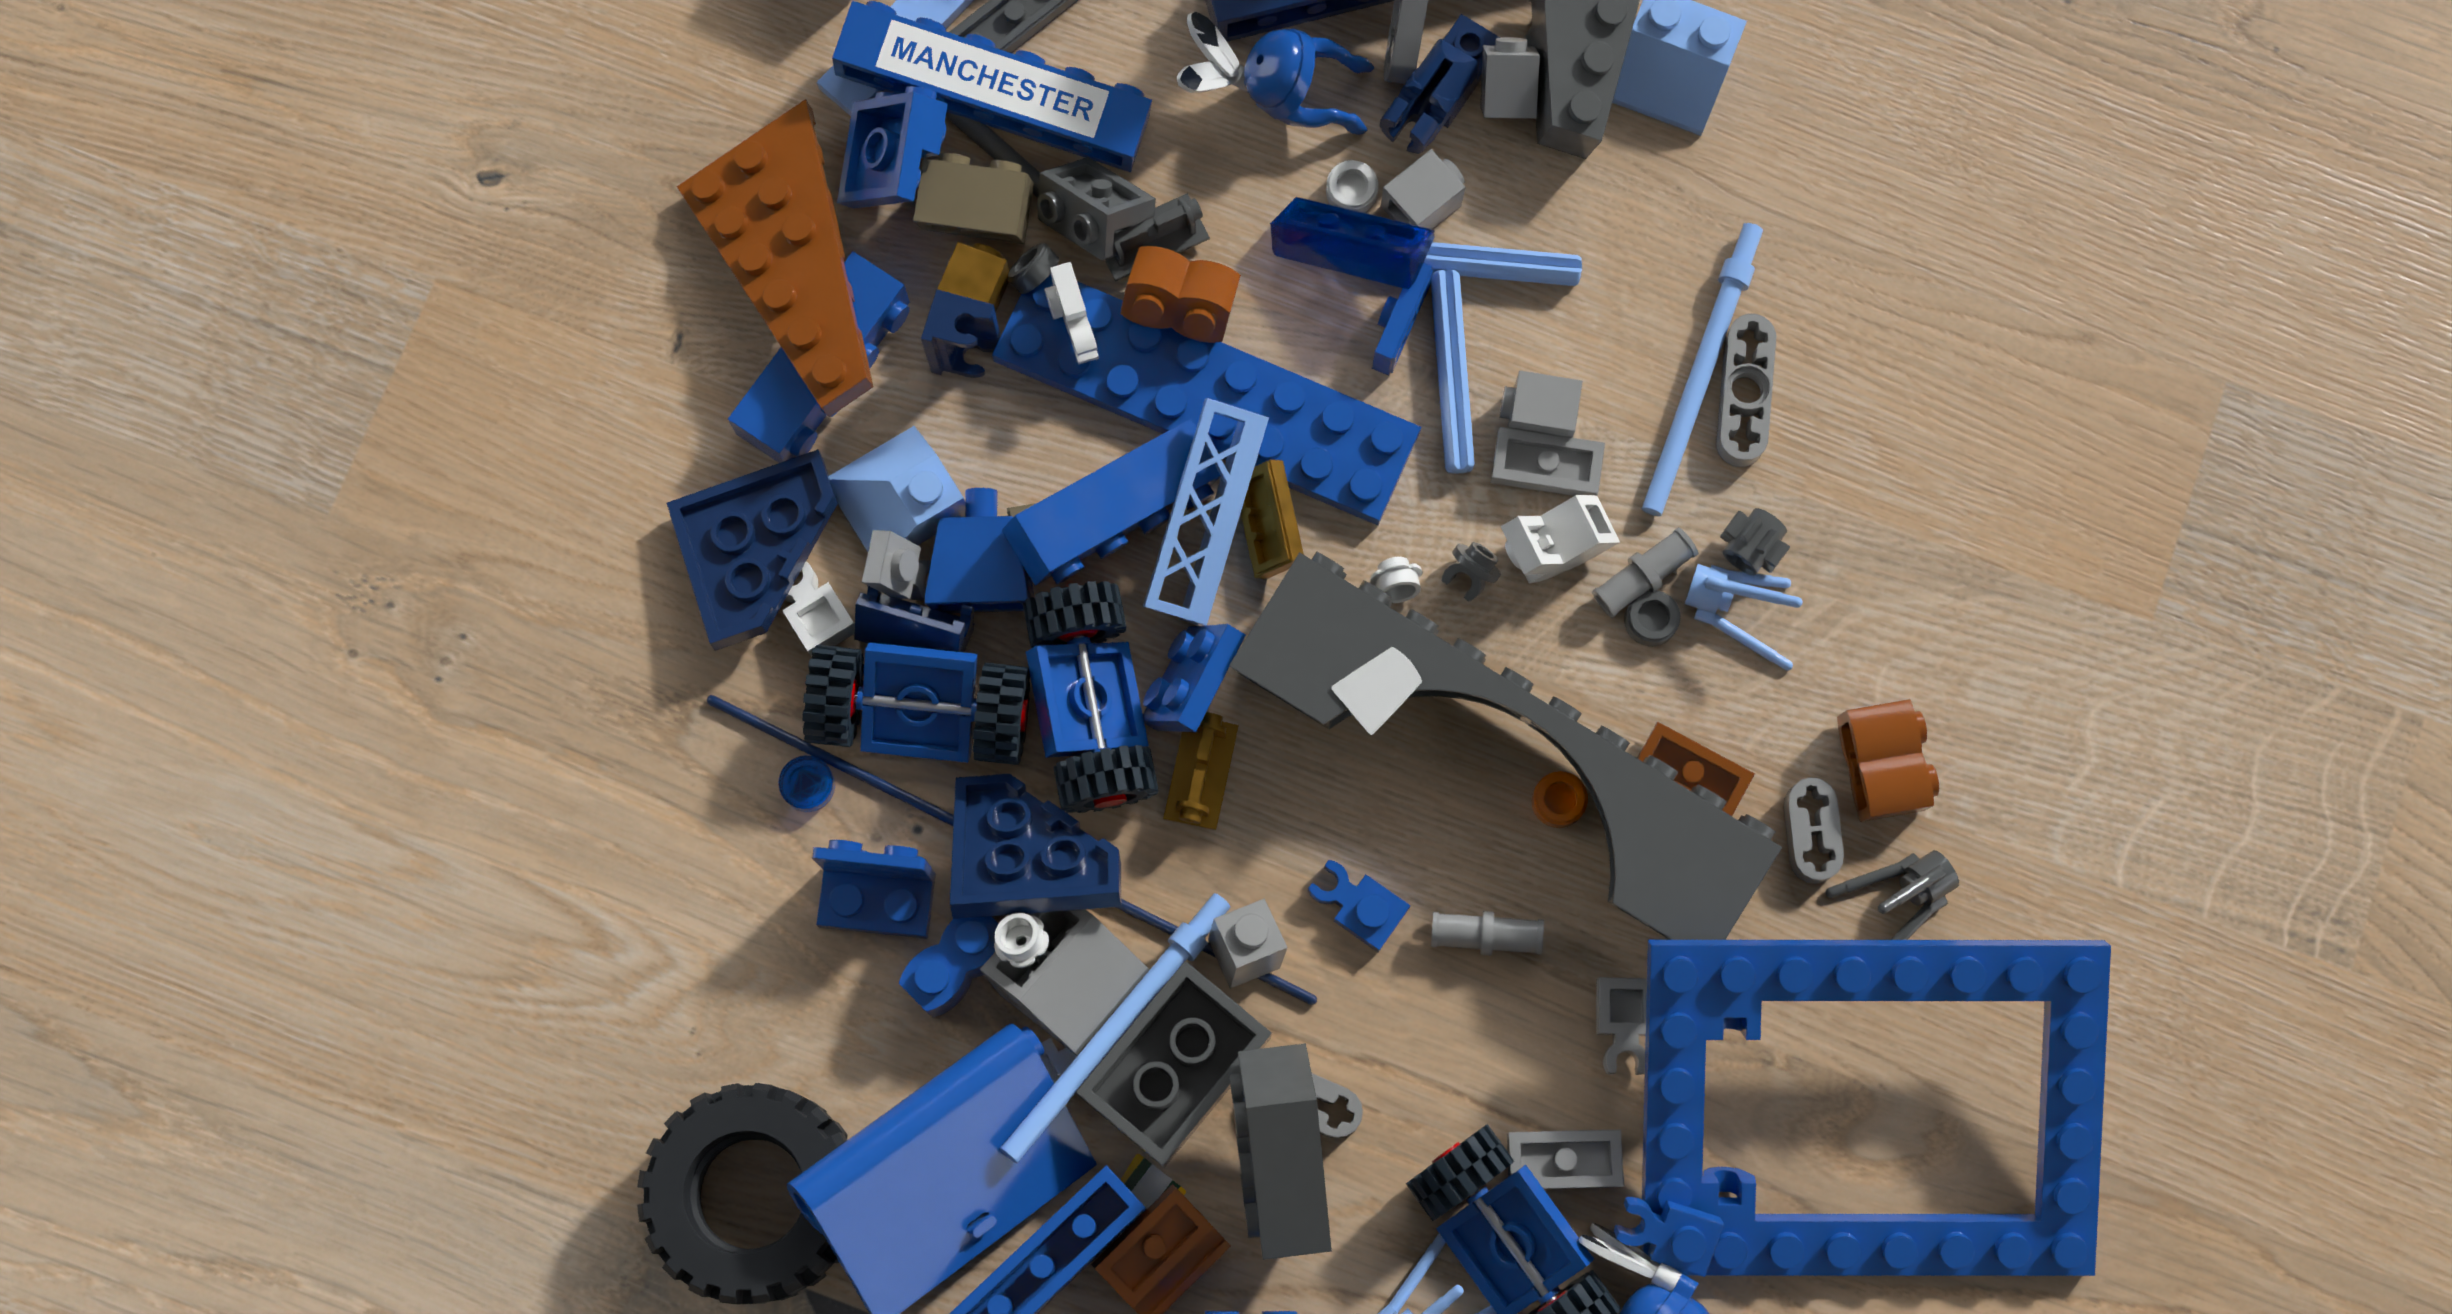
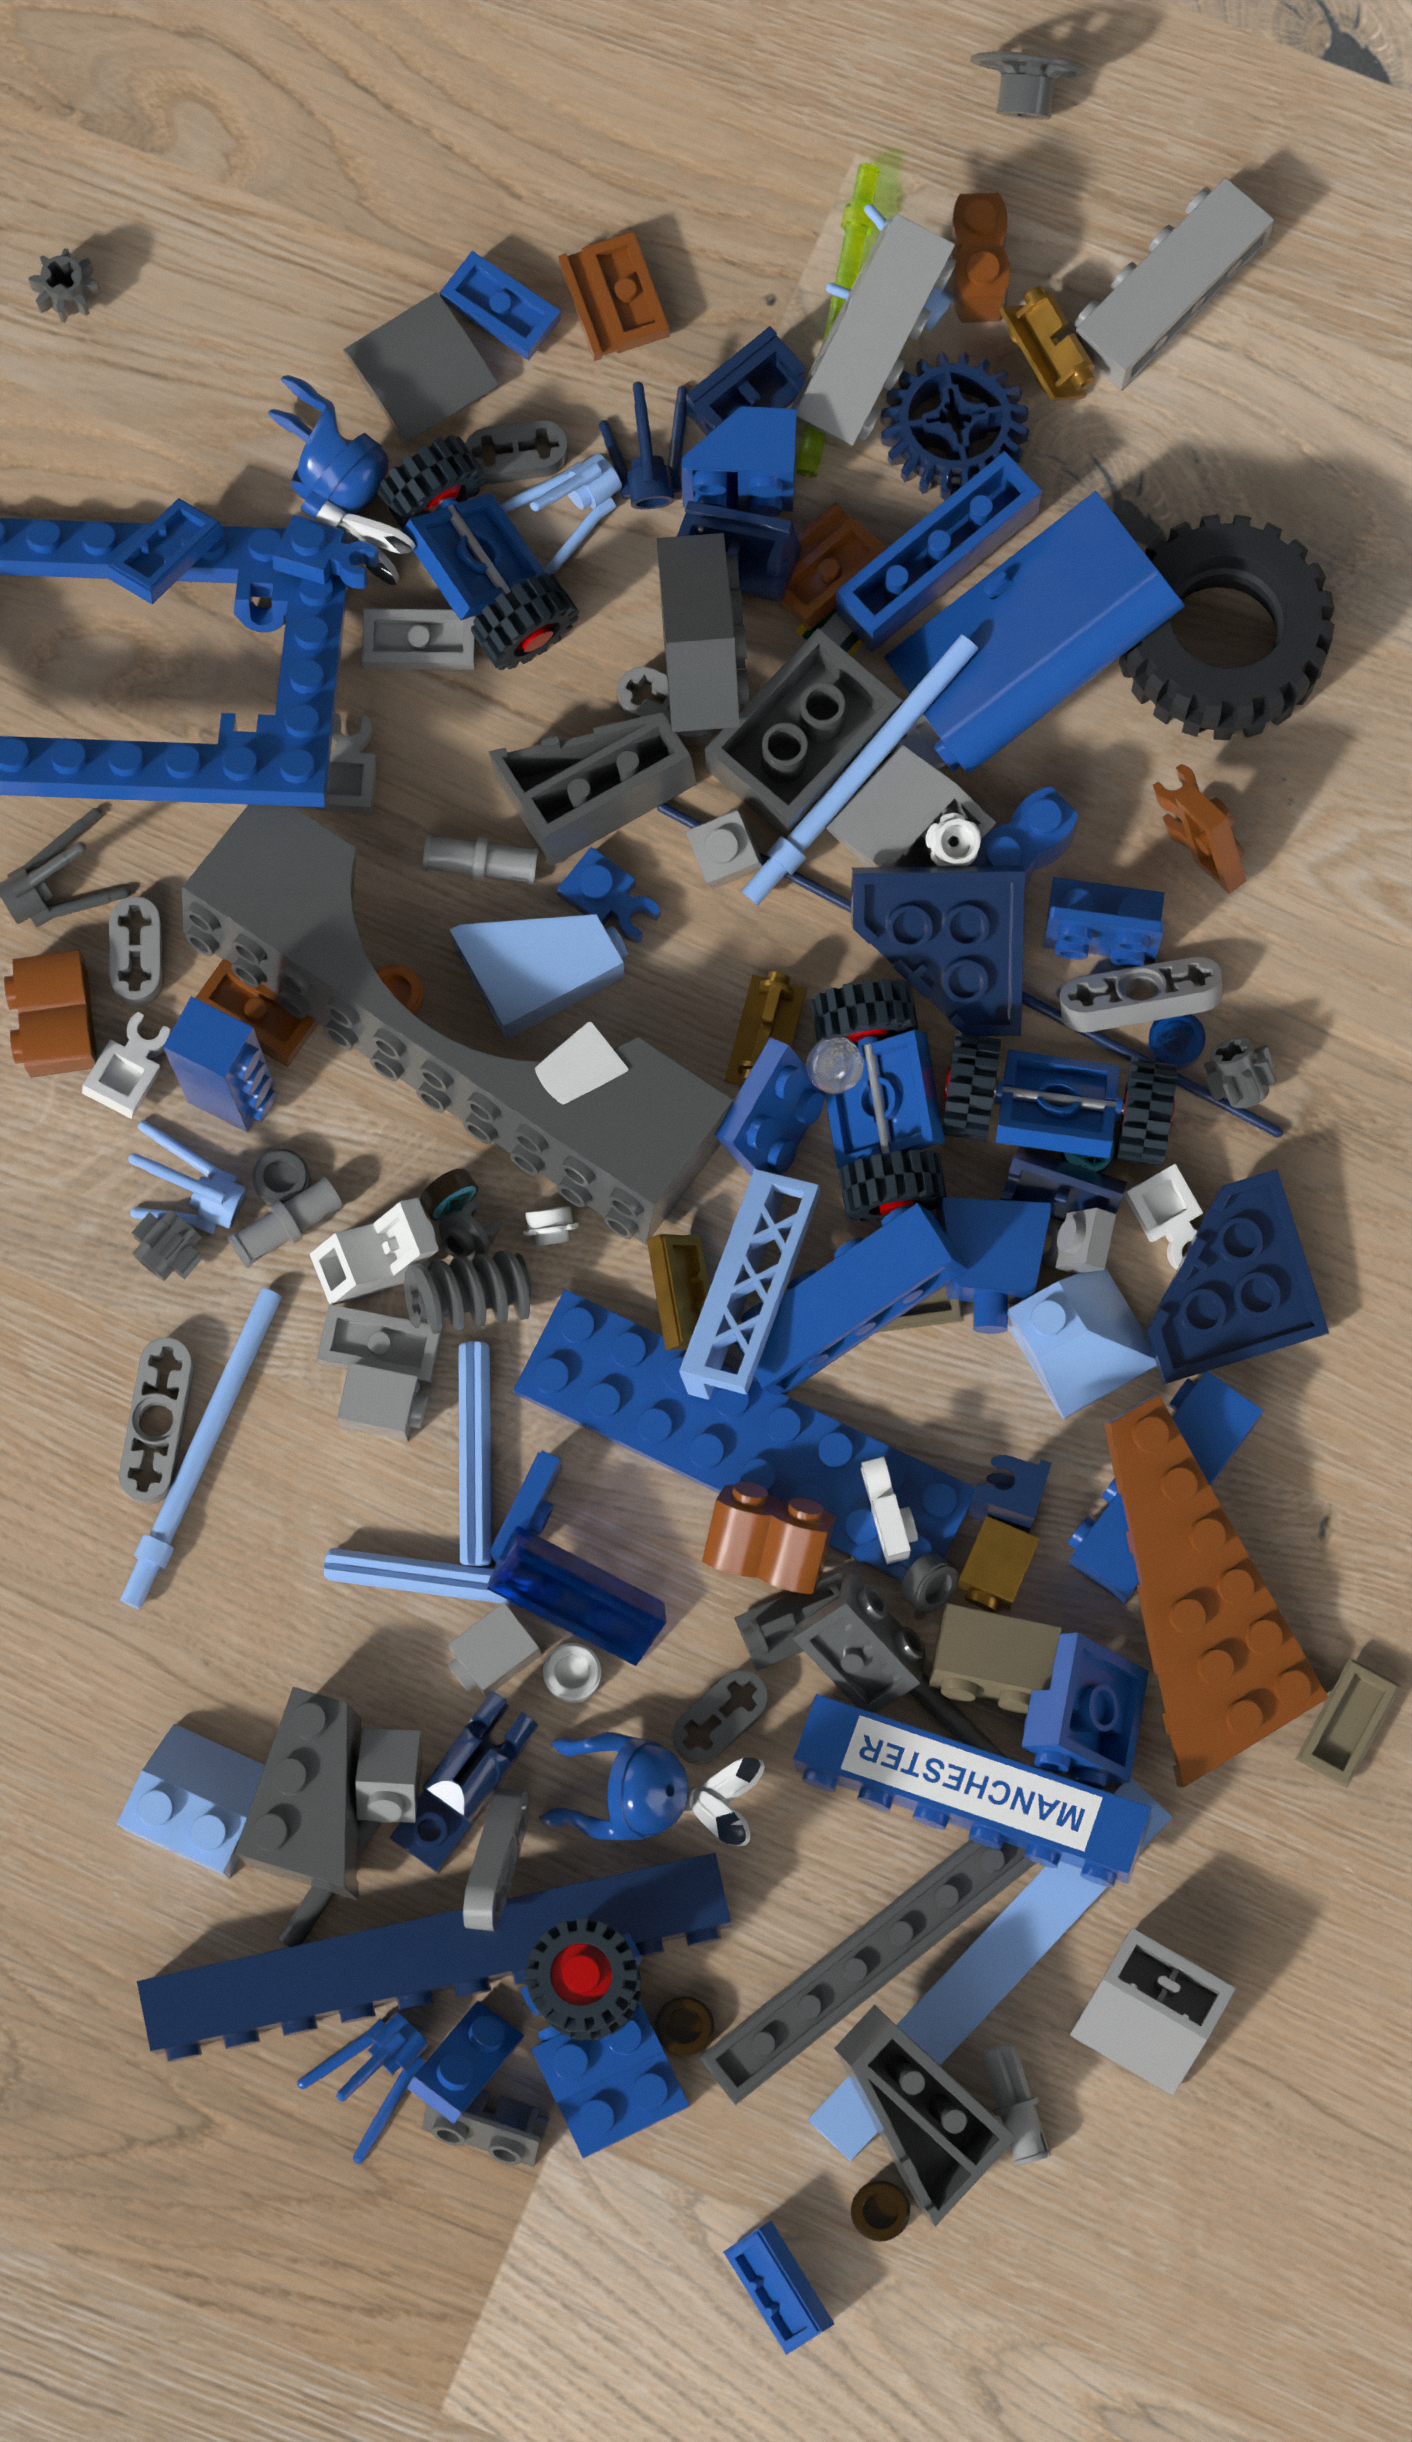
camera: 175 degrees left, 0 degrees up
(659, 168) = (1348, 1722): none -> dark tan tile
(744, 743) = (1240, 1072): none -> dark grey gear
(770, 973) = (1203, 829): none -> dark orange plate
(796, 817) = (1100, 987): none -> light grey beam
(1133, 723) = (834, 1065): none -> clear plate
(1226, 161) = (729, 1728): none -> dark grey beam
(1231, 1261) = (763, 545): none -> dark blue hinge
(1384, 1005) = (593, 782): none -> dark grey wedge
(1424, 825) = (538, 965): none -> light blue slope
(1468, 503) = (467, 1288): none -> dark grey piece
(1494, 603) = (448, 1193): none -> dark brown tile
(1725, 676) = (220, 1065): none -> blue brick
(1813, 706) = (125, 1073): none -> white plate
(1832, 1228) = (165, 551): none -> blue plate

